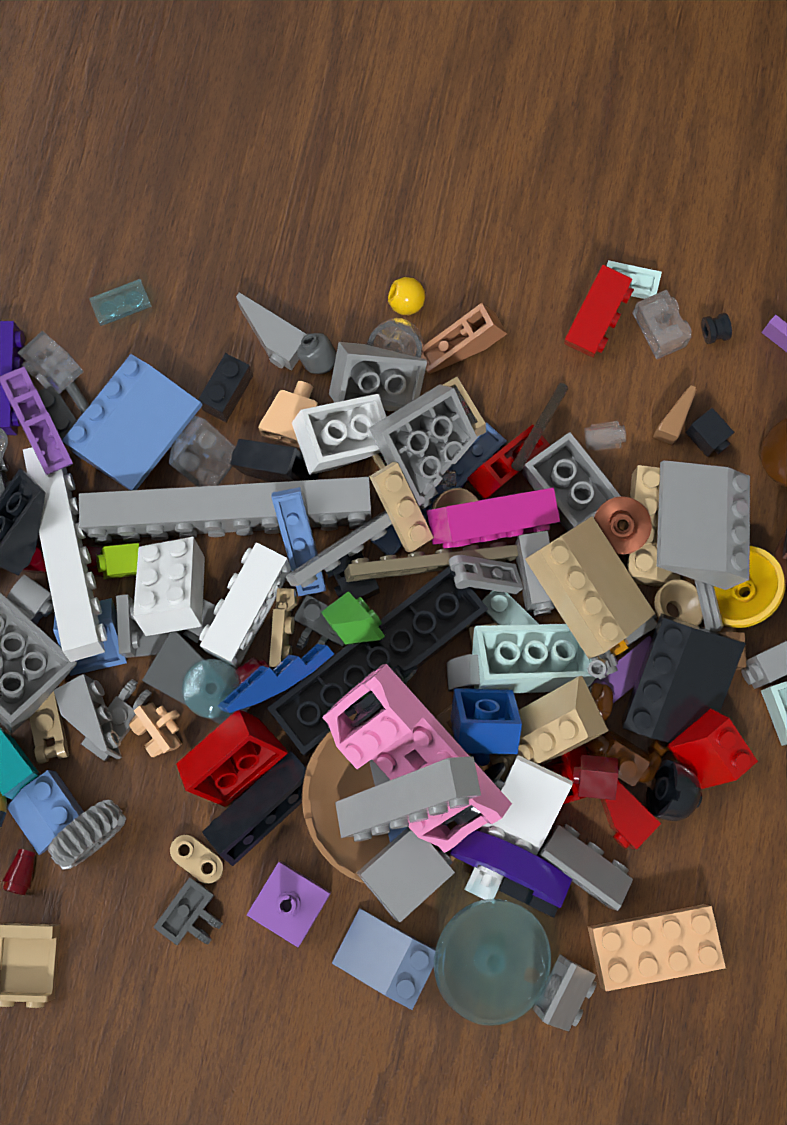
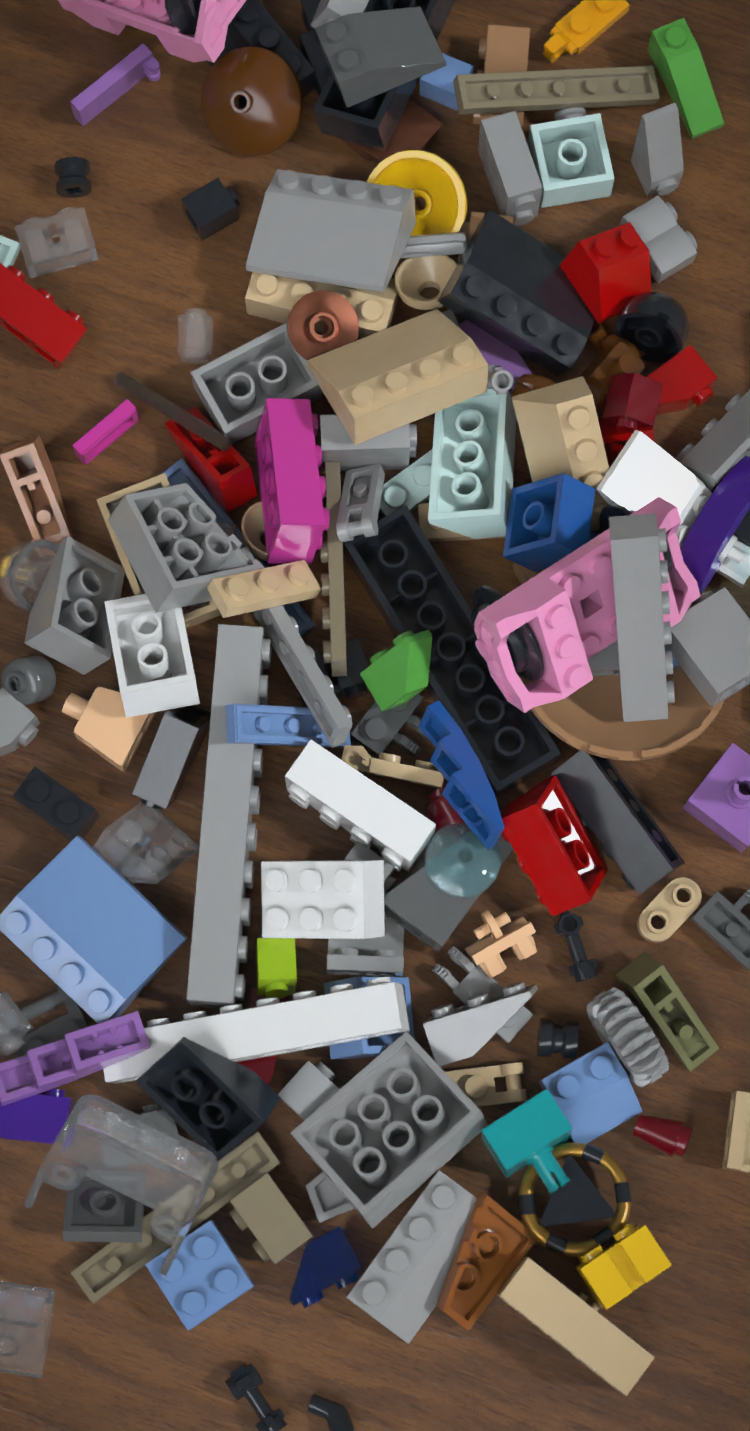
camera: 85 degrees left, 0 degrees up
(86, 781) = (557, 1038): none -> black wheel
(115, 864) = (667, 1010): none -> olive slope
(143, 794) = (568, 928): none -> black bar
(463, 672) = (480, 549): light grey slope -> none
(517, 381) = (106, 432): none -> dark pink tile
(672, 424) = (188, 248): medium nougat slope -> none
(751, 790) = (668, 243): none -> light grey brick

